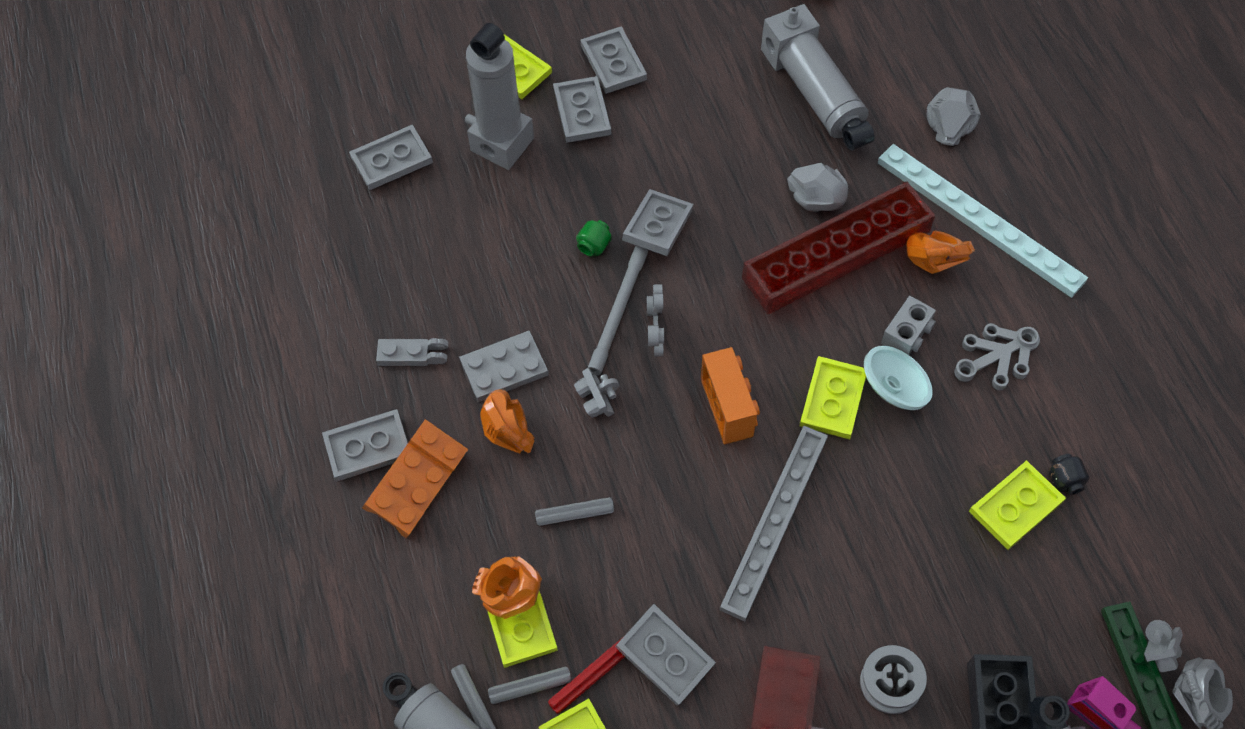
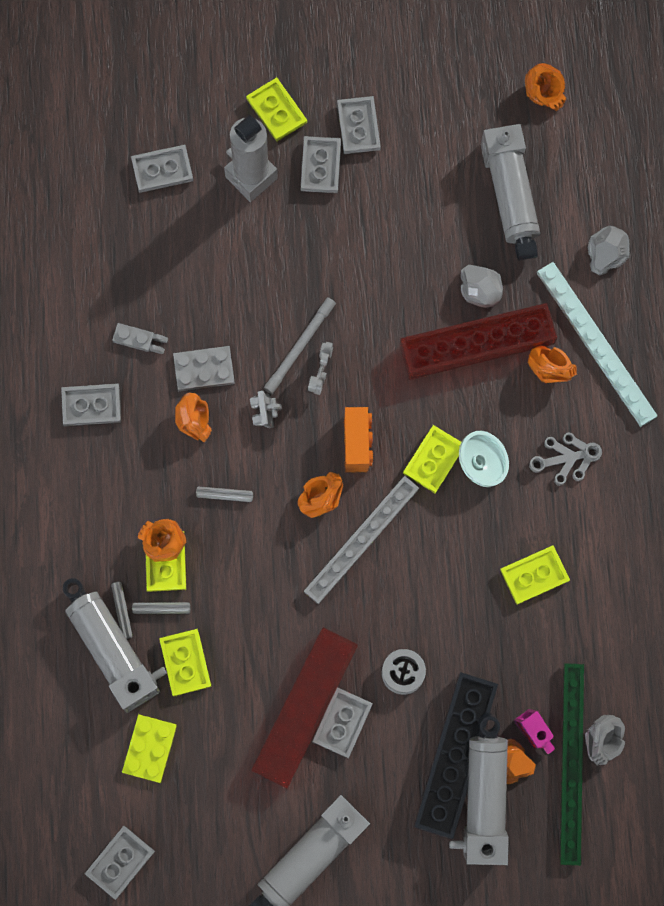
camera: 10 degrees right, 15 degrees up
(415, 478) = (119, 440): orange piece -> none
(585, 679) = (206, 611): red axle -> none
(593, 238) = (297, 282): green head -> none
(657, 222) = (349, 282): light grey plate -> none
(665, 654) = (256, 613): light grey plate -> none
(700, 485) = (318, 500): none -> orange helmet
(905, 325) = (504, 416): light grey brick -> none
(1069, 474) = (580, 563): black head -> none
(1163, 645) = (592, 701): light grey hips -> none

